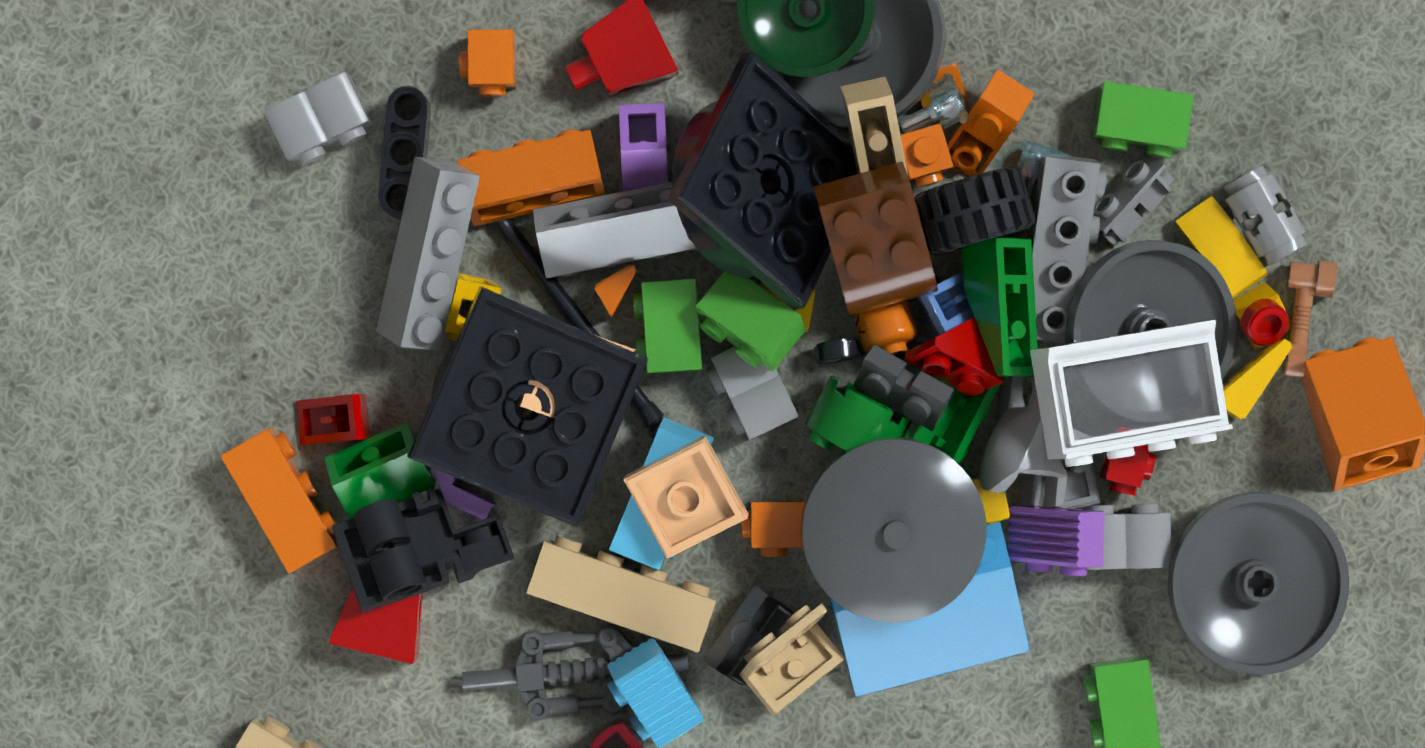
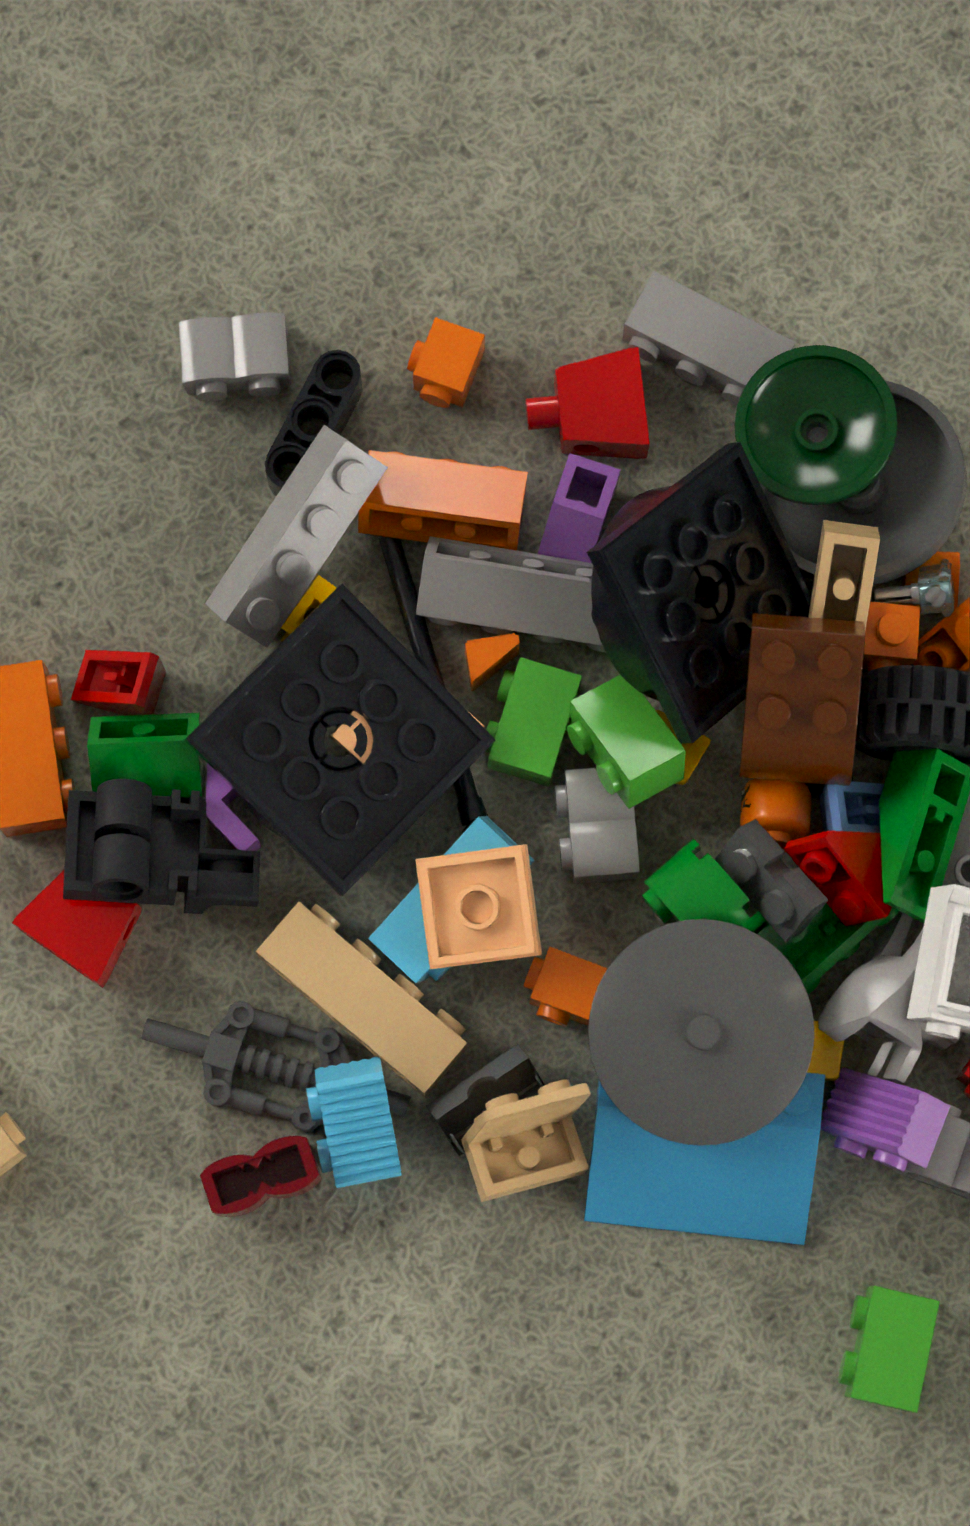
camera: 15 degrees right, 10 degrees down
(837, 350) = (710, 819): black tile -> none
(1080, 487) = (932, 1074): light grey tile -> none

